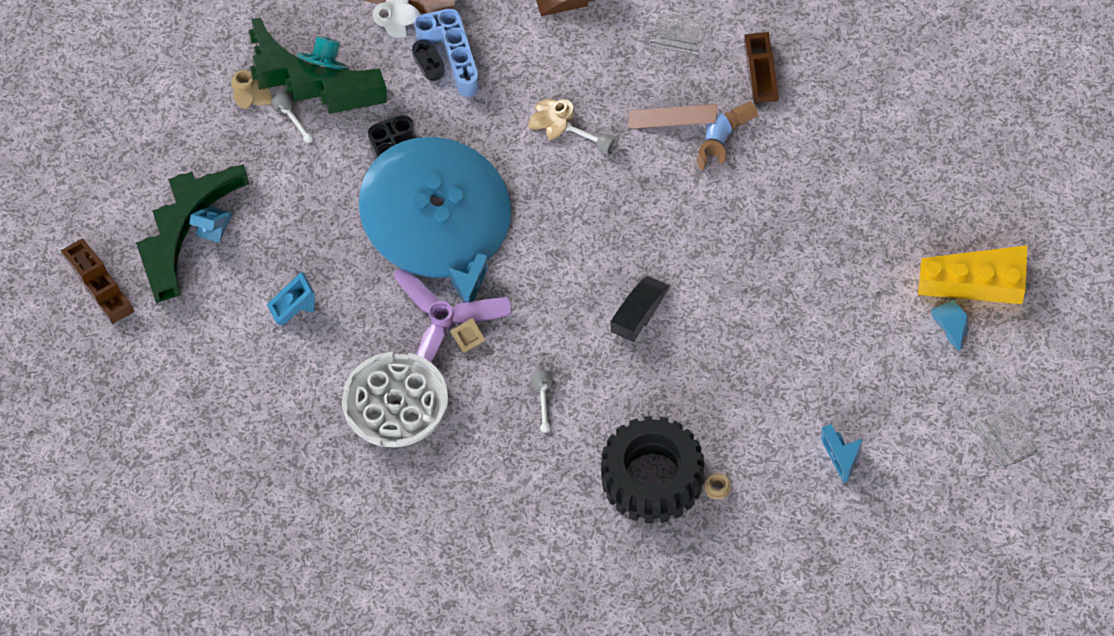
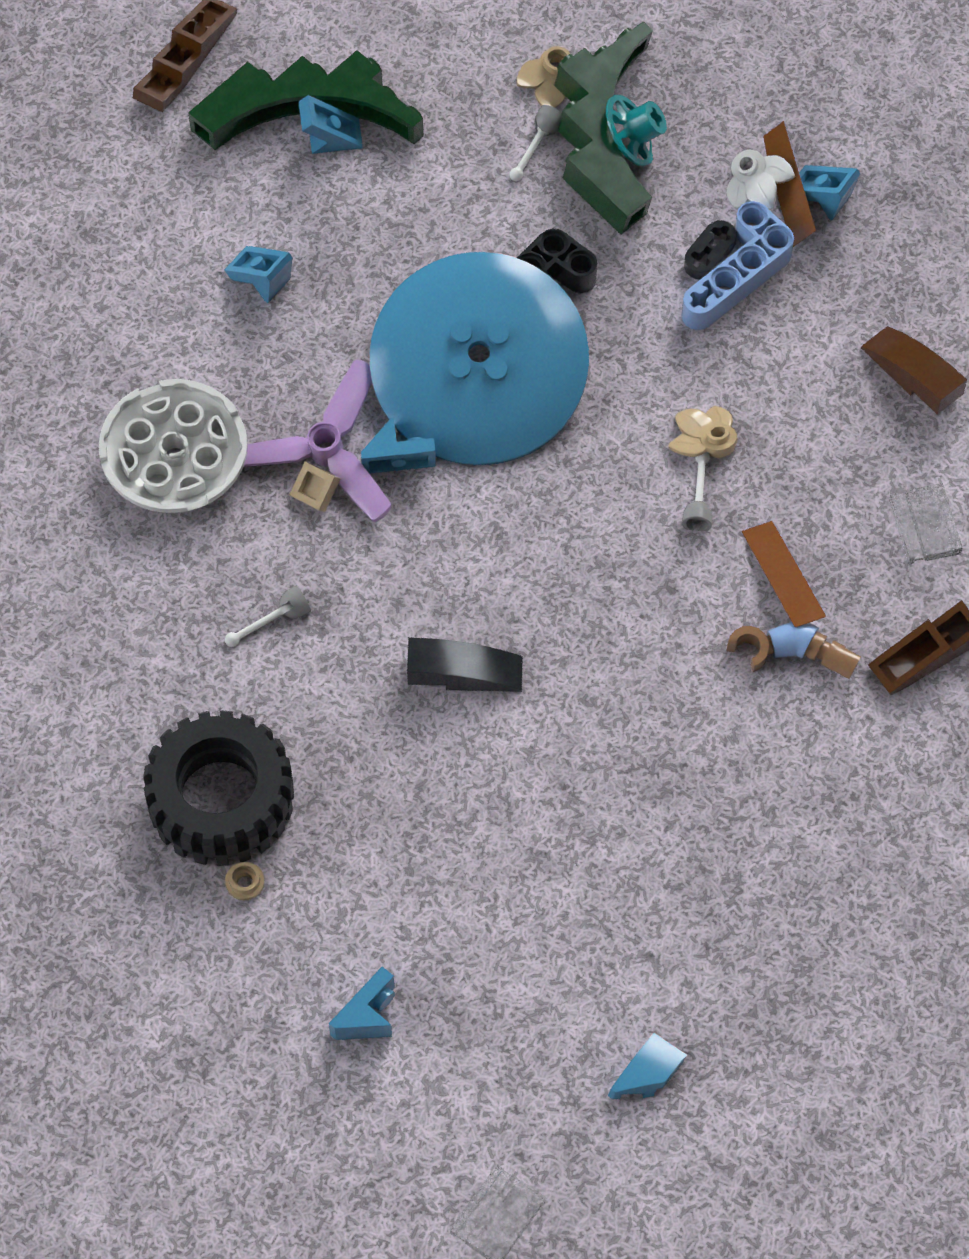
camera: 60 degrees right, 5 degrees up
(976, 275) = (741, 1076): yellow wedge -> none

